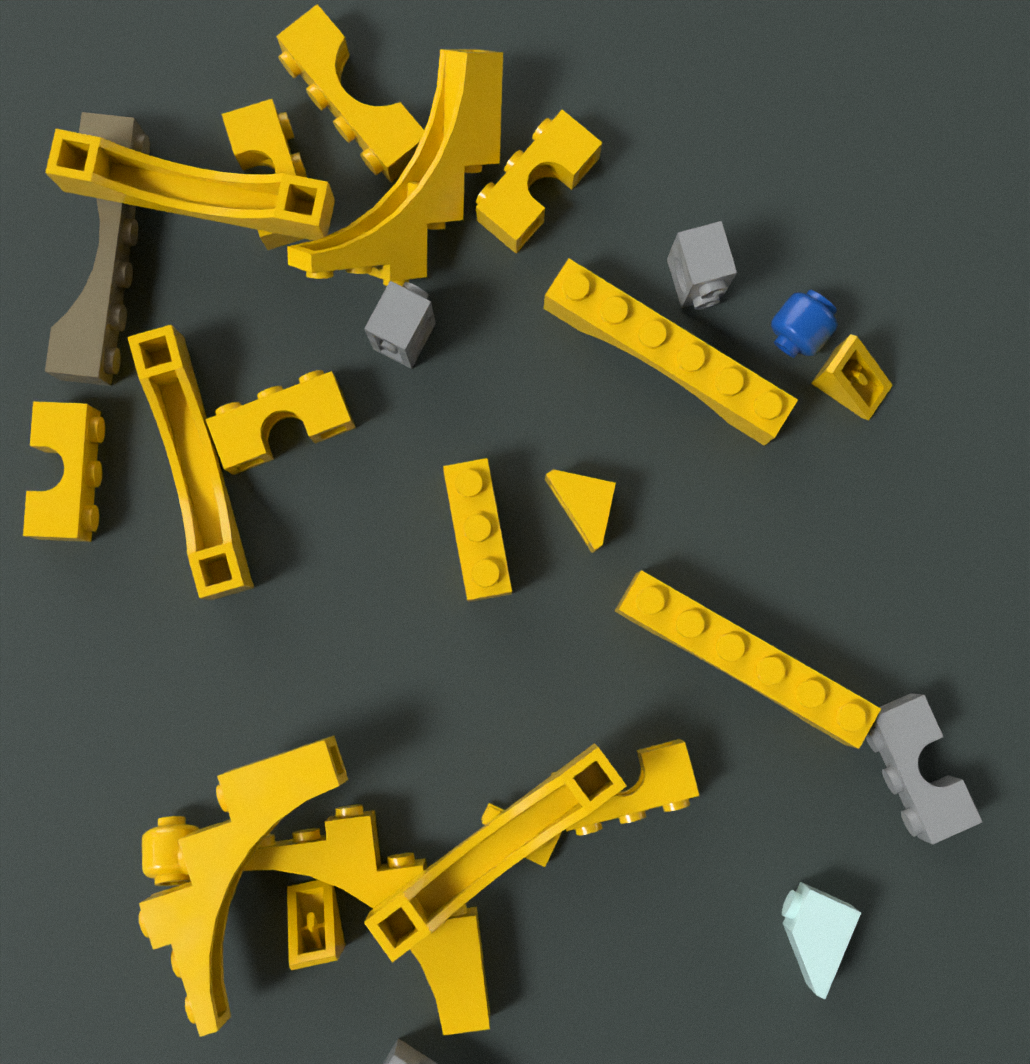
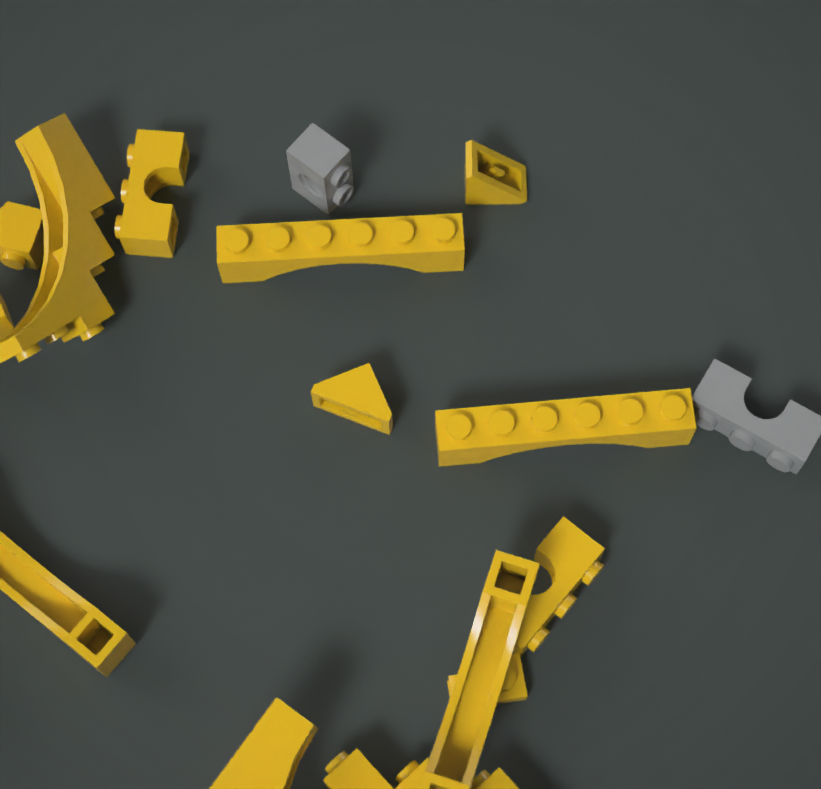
camera: 30 degrees left, 15 degrees down
(244, 430) = (87, 465): yellow arch -> none
(401, 323) = (119, 357): light grey brick -> none
(477, 530) = (294, 475): yellow arch -> none
(804, 324) = (428, 163): blue head -> none
(818, 933) = (775, 594): light aqua slope -> none

